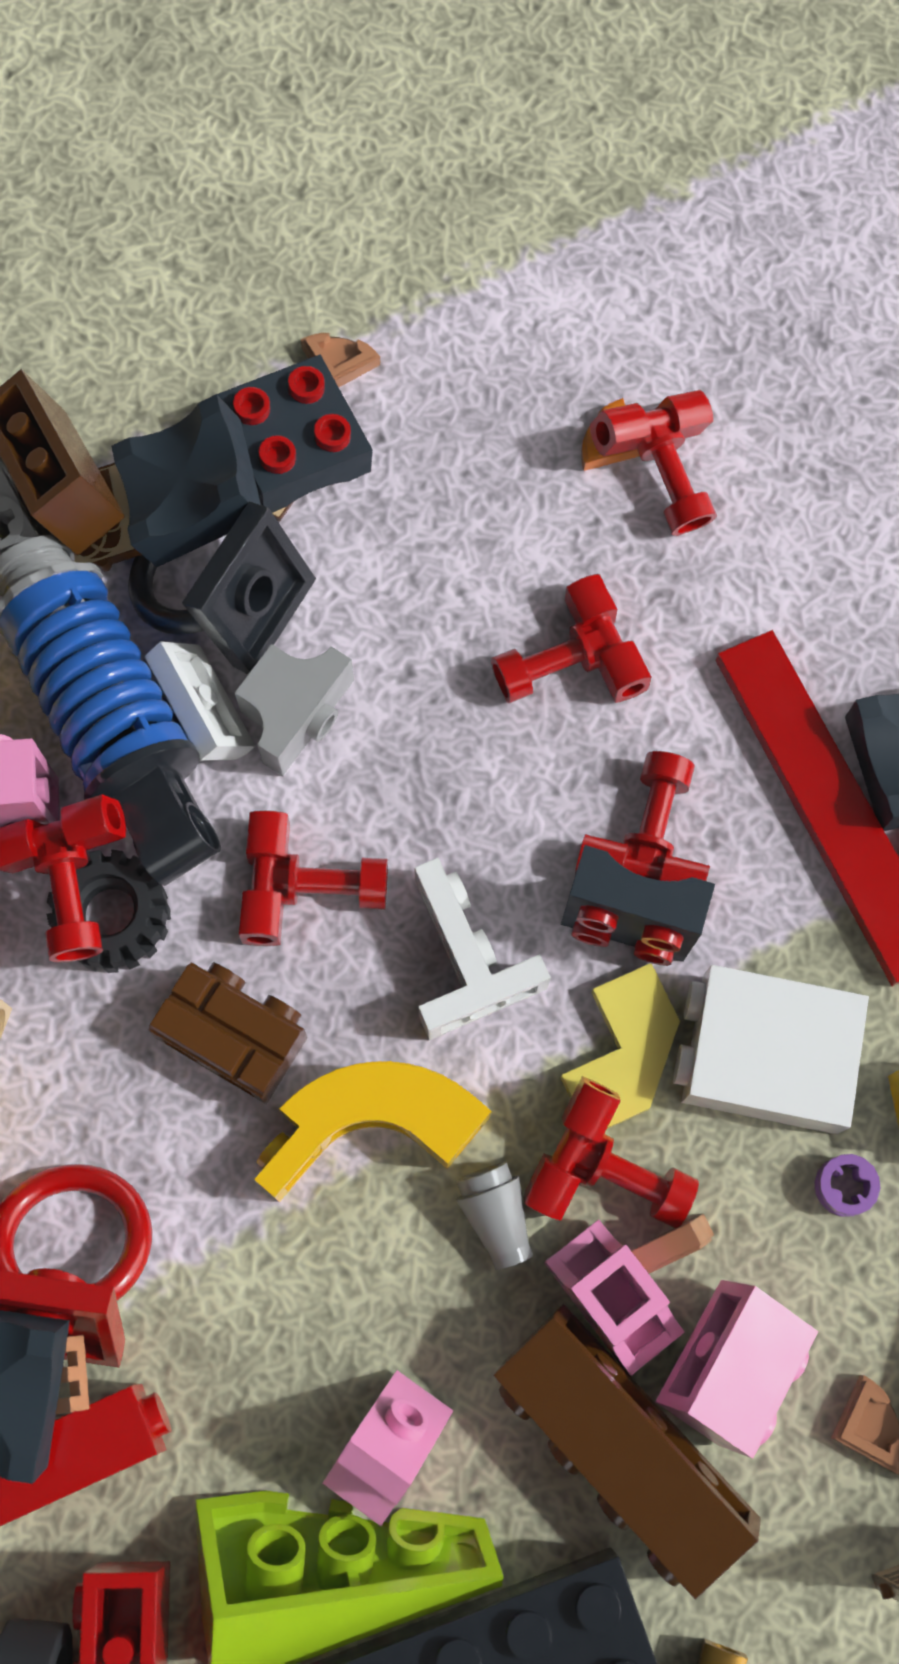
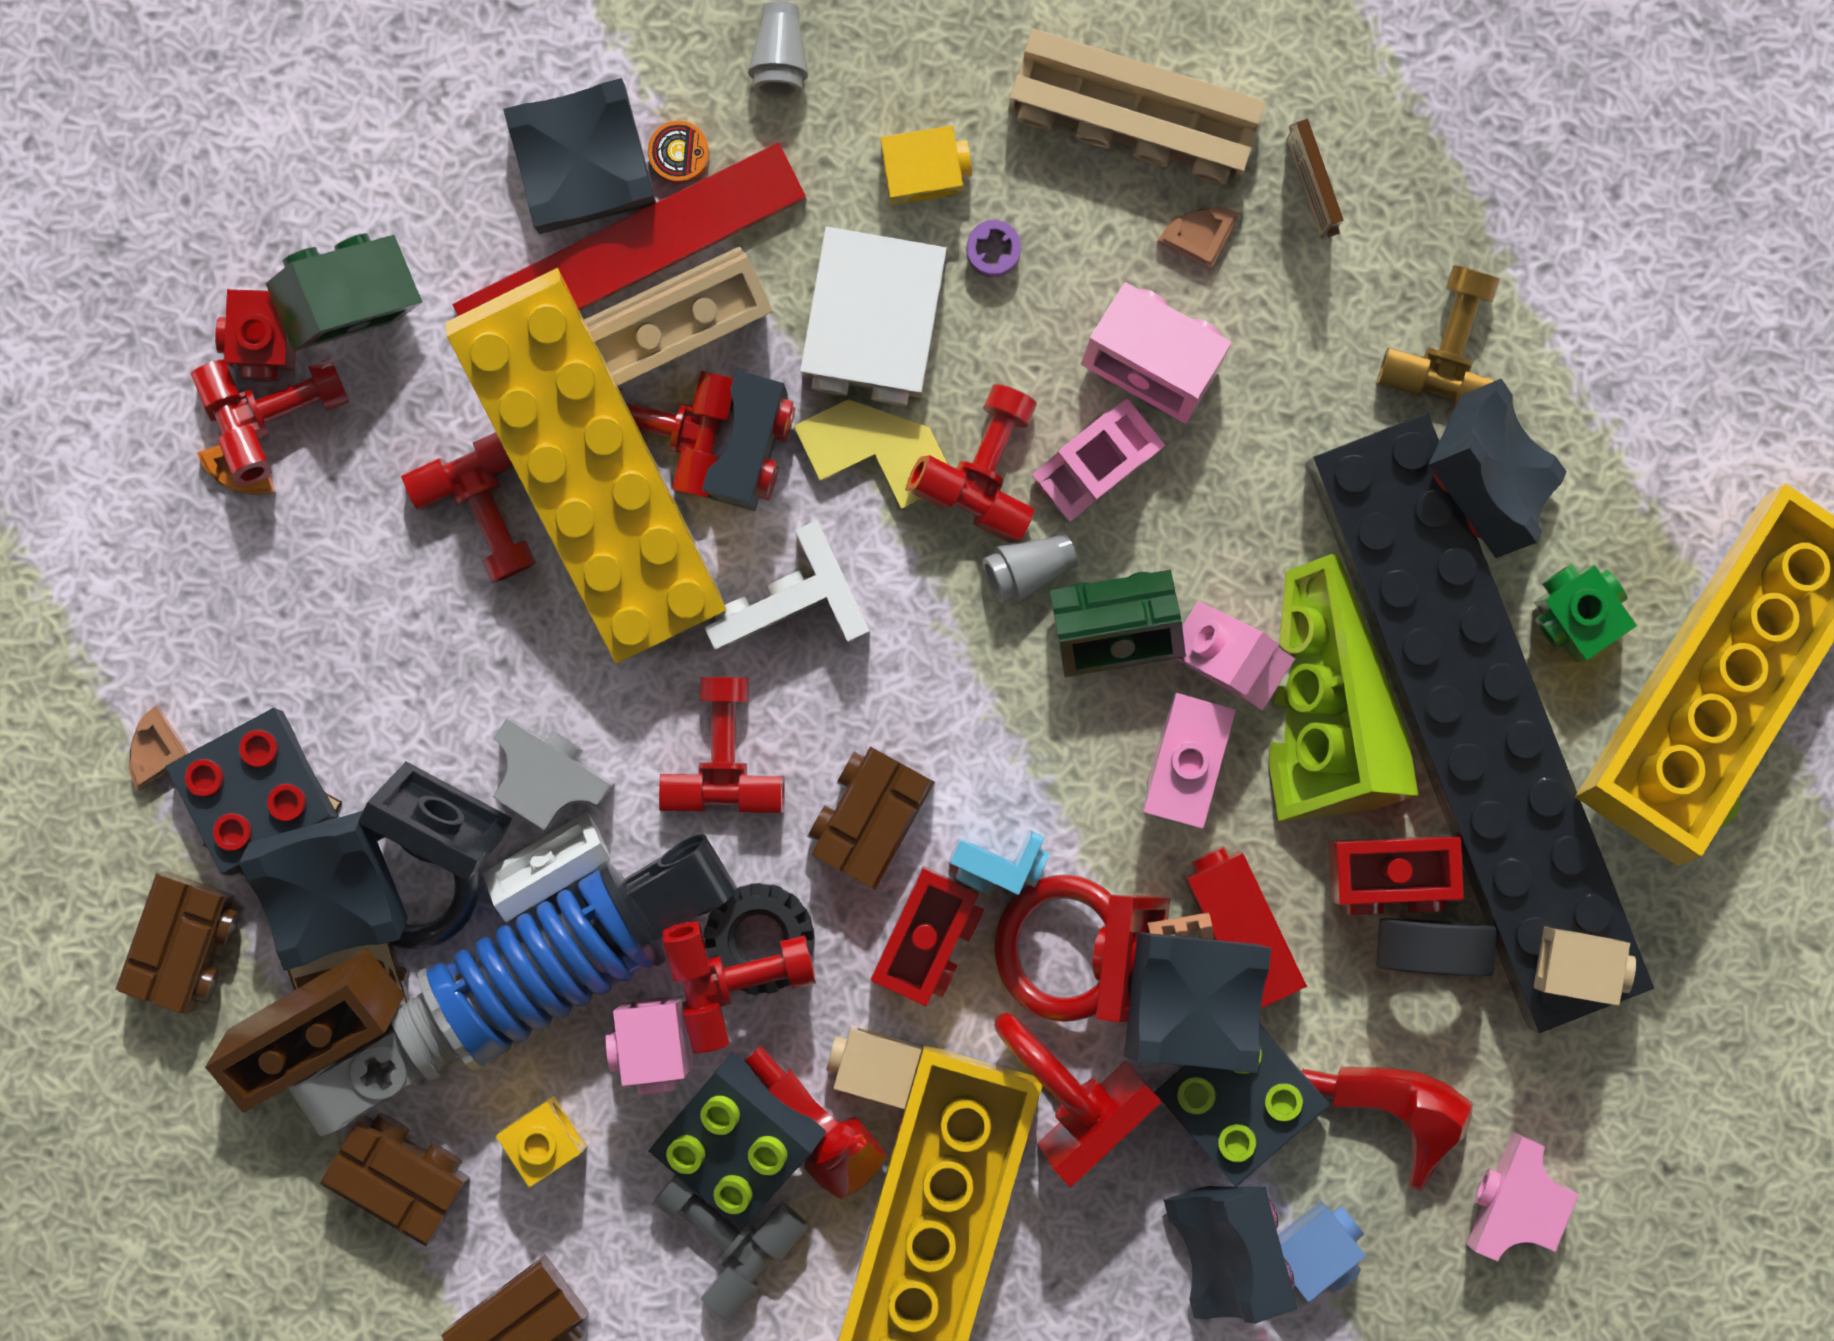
camera: 90 degrees left, 15 degrees up
(94, 1081) = (924, 936): none -> red brick
(149, 364) = (178, 943): none -> reddish brown brick
(160, 1154) = (985, 869): none -> medium azure bracket
(267, 1391) = (1188, 760): none -> bright pink brick
(371, 1095) = (926, 665): yellow arch -> none
(429, 1312) = (1118, 623): none -> dark green brick
(610, 733) = (585, 465): none -> yellow brick
(629, 1453) = (1226, 450): reddish brown brick -> none
(674, 1244) = (1051, 406): nougat tile -> none
(740, 452) = (253, 336): none -> red brick
(749, 809) = (679, 315): none -> tan brick
(785, 519) = (342, 290): none -> dark green brick

